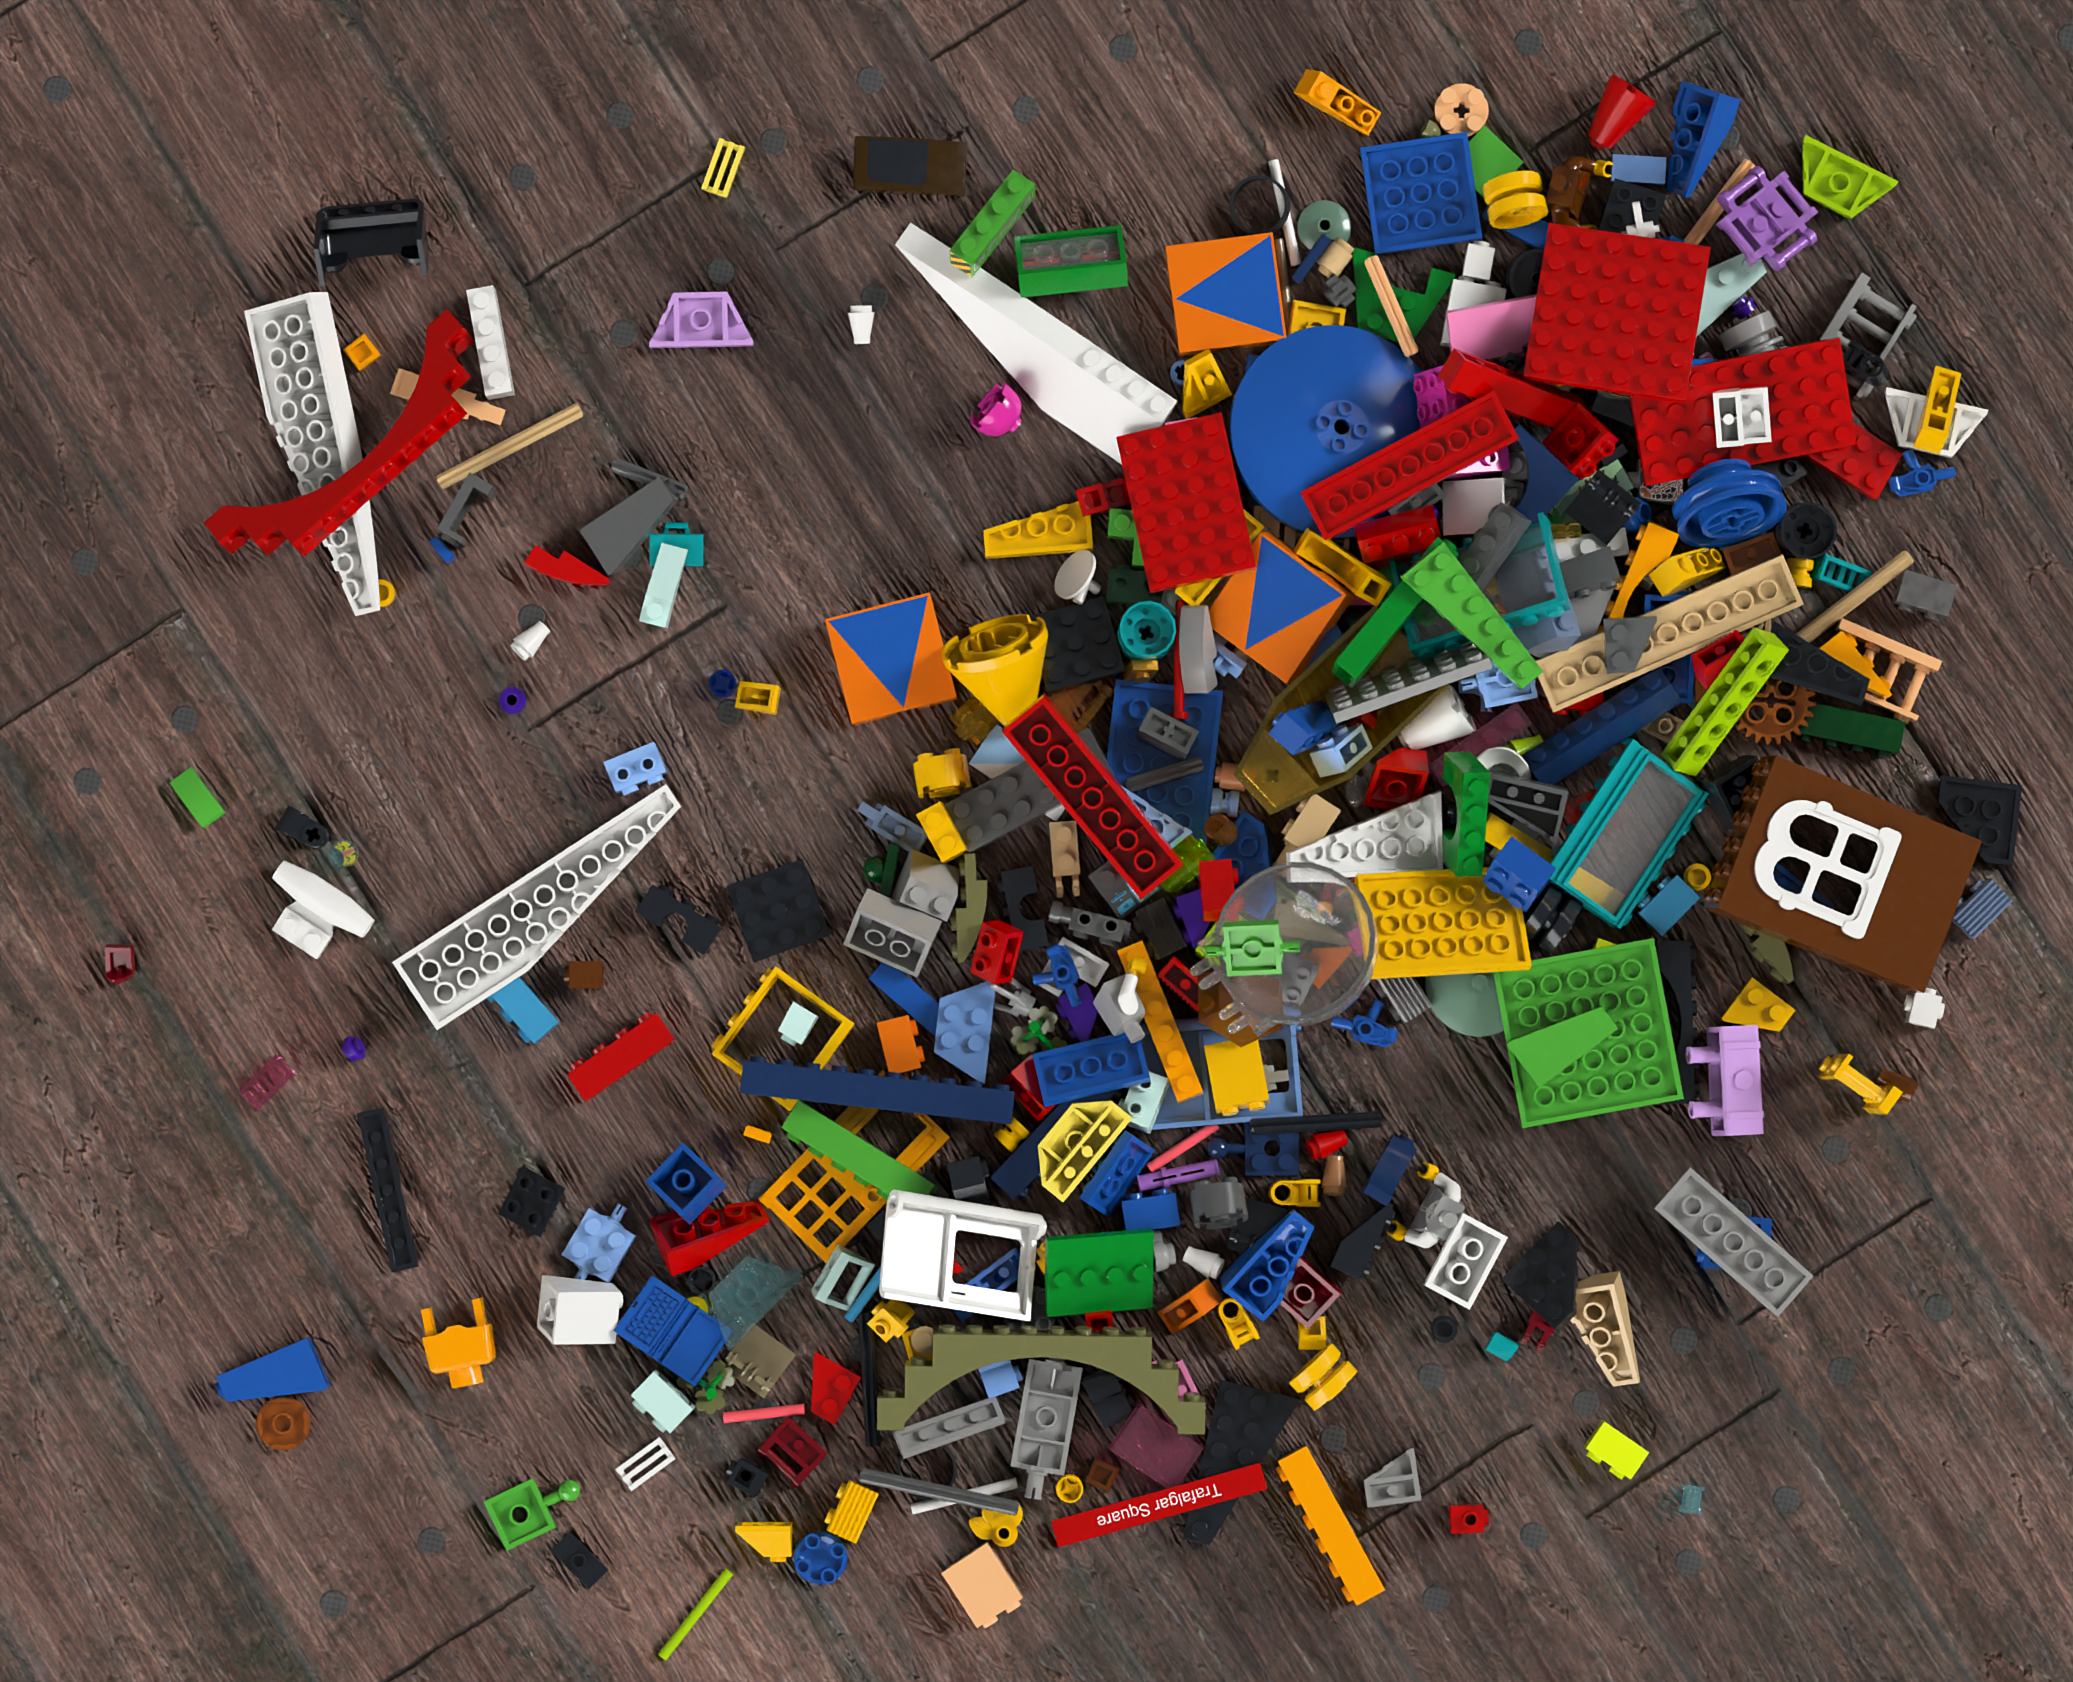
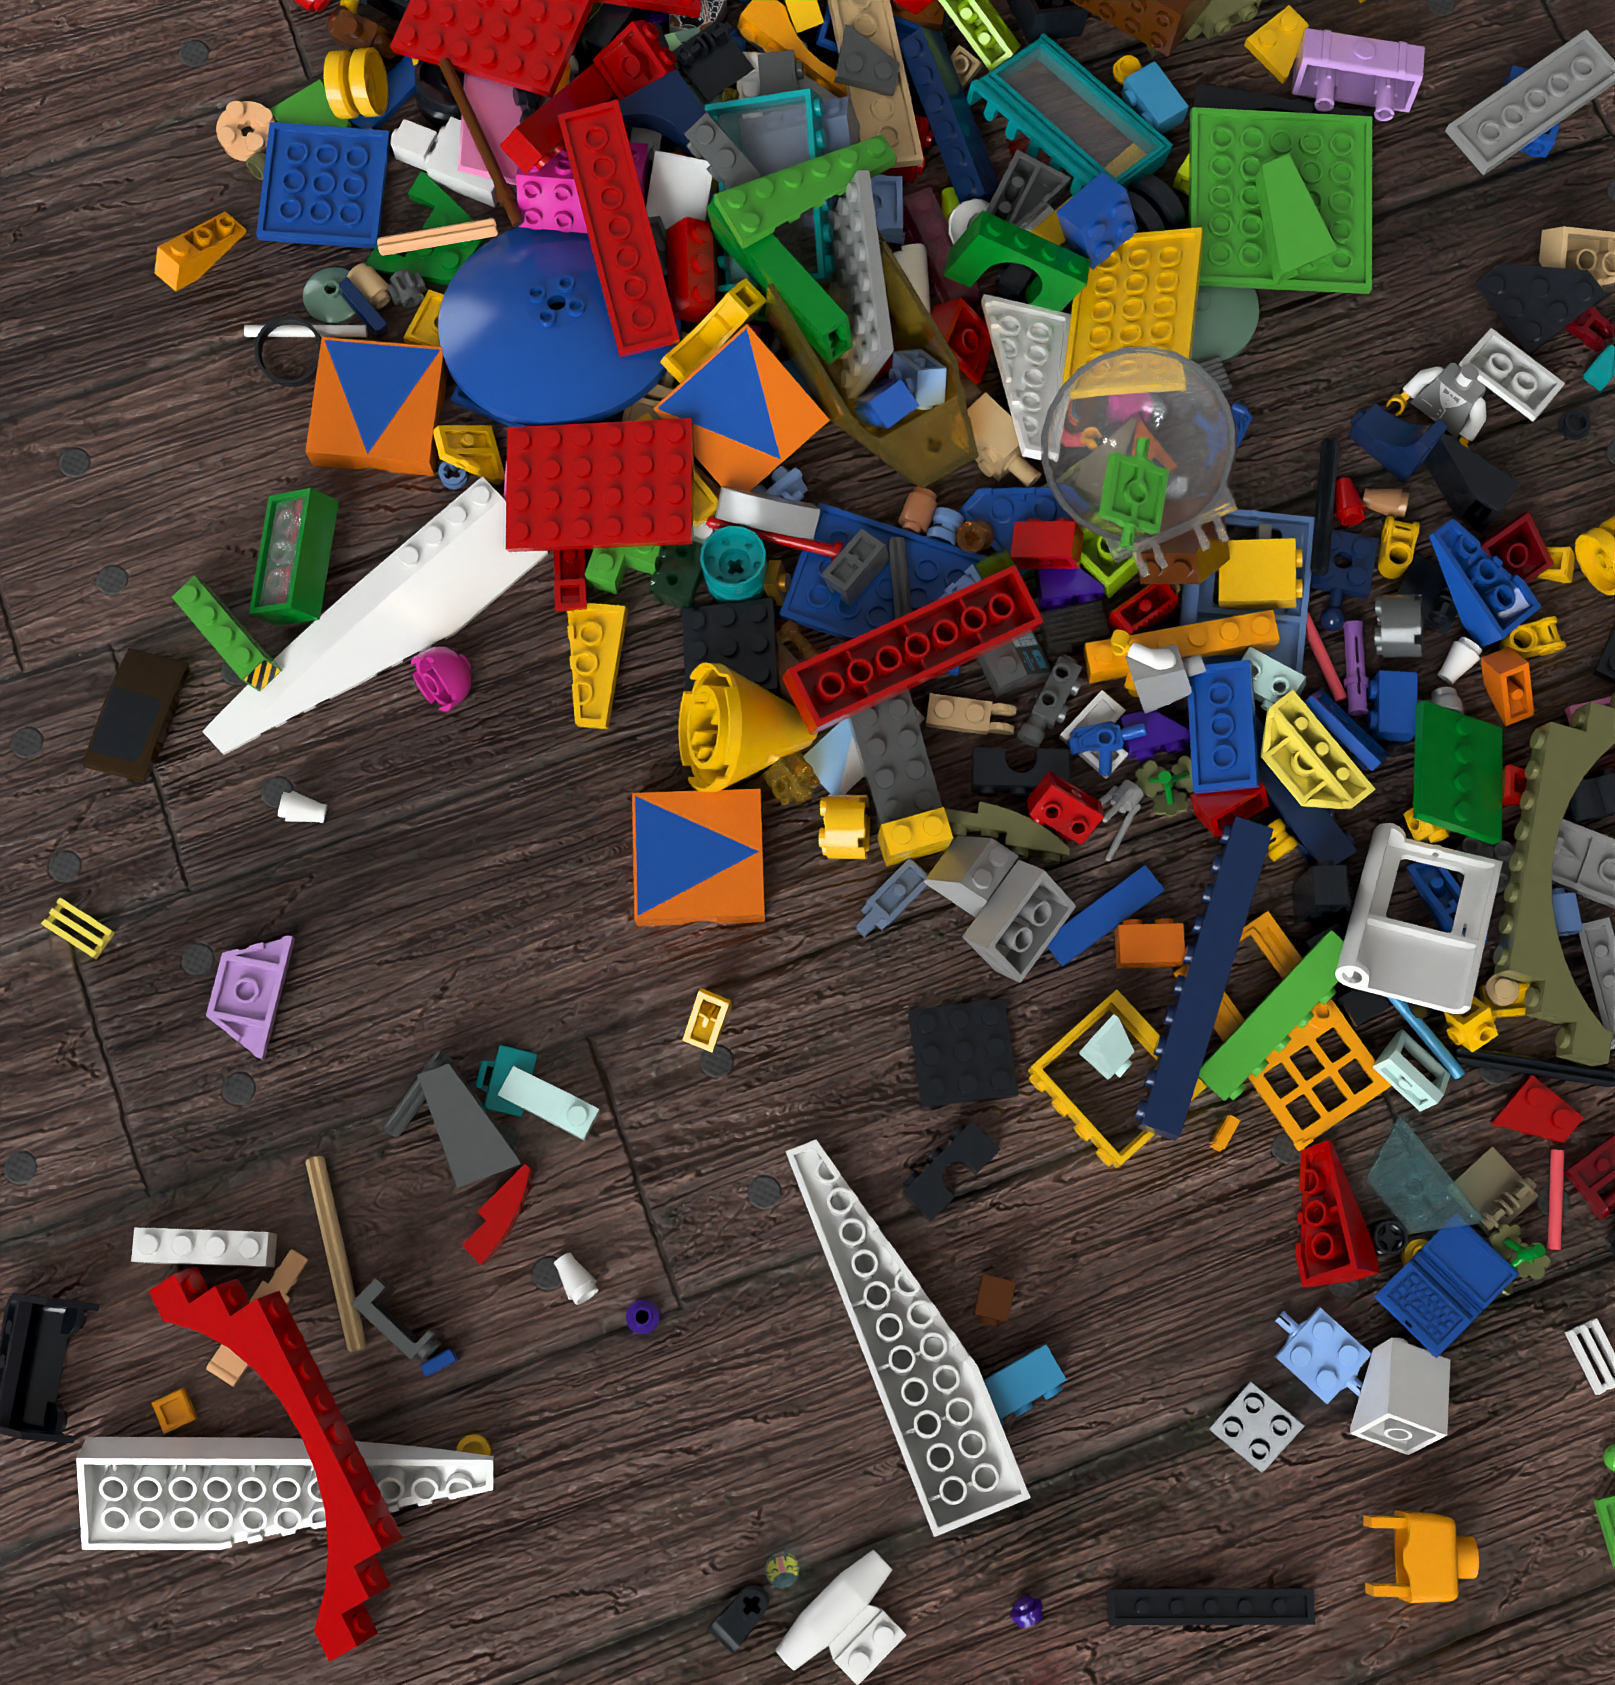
camera: 80 degrees left, 10 degrees down
(621, 1056) = (1101, 1278): red brick -> none
(635, 769) = (758, 1183): light blue brick -> none
(662, 1401) = (1531, 1316): light aqua brick -> none
(686, 1183) = (1270, 1230): blue brick -> none
(720, 681) = (679, 1053): clear blue wheel -> none
(881, 869) = (941, 918): dark green tile -> none
(965, 1029) = (1145, 865): medium blue wing -> none
(1076, 576) = (652, 630): white shield -> none
(1432, 358) = (505, 193): none -> reddish brown bar

